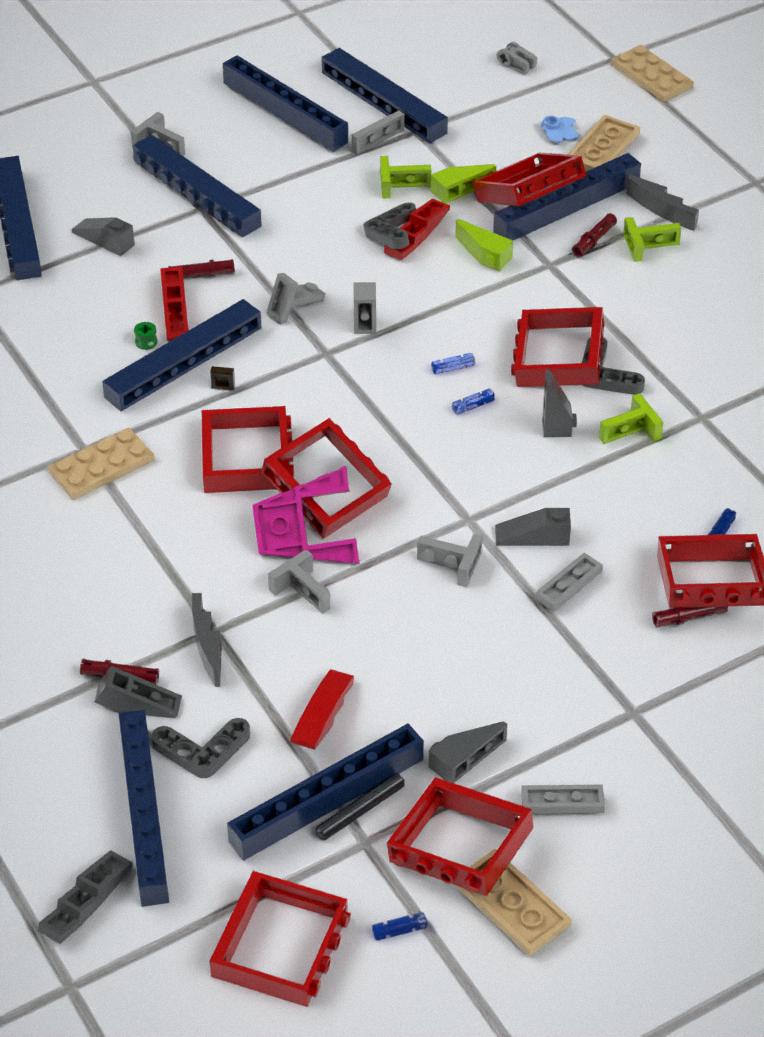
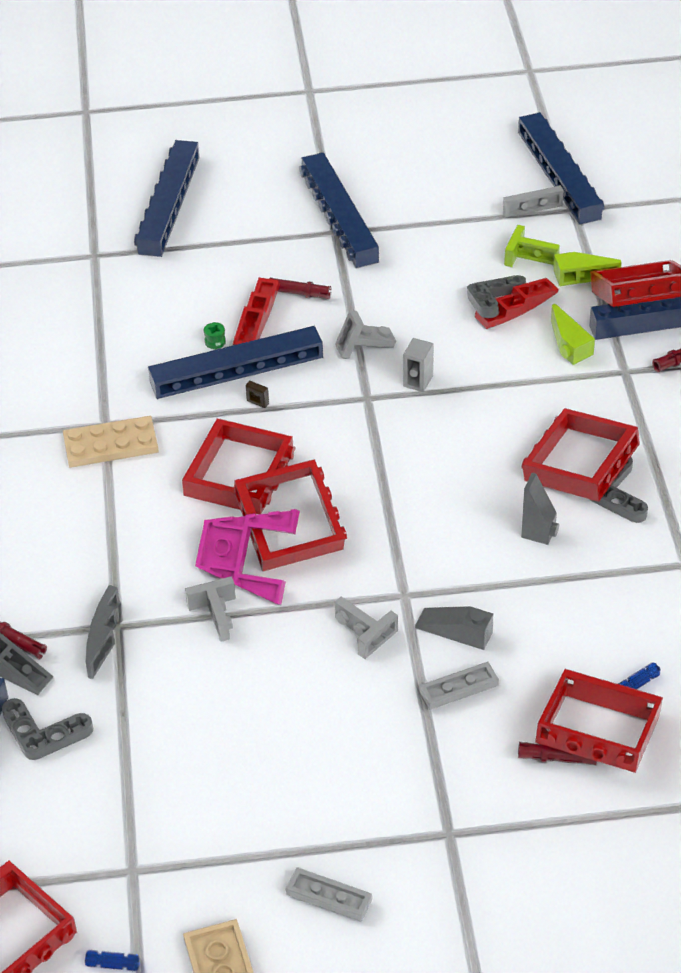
camera: 25 degrees right, 0 degrees up
(107, 233) = (236, 233): dark grey slope -> none
(156, 126) = (333, 148): light grey bracket -> none
(285, 103) = (462, 153): dark blue brick -> none
(321, 709) = (158, 733): red slope -> none
(325, 791) = (117, 809): dark blue brick -> none
(360, 806) = (144, 834): black axle -> none
(453, 363) = (475, 440): clear blue axle -> none
(464, 750) = (264, 815): dark grey slope -> none
(470, 803) = (187, 863): red window -> none
(473, 401) = (472, 483): clear blue axle -> none
(638, 419) = (608, 548): lime bracket -> none

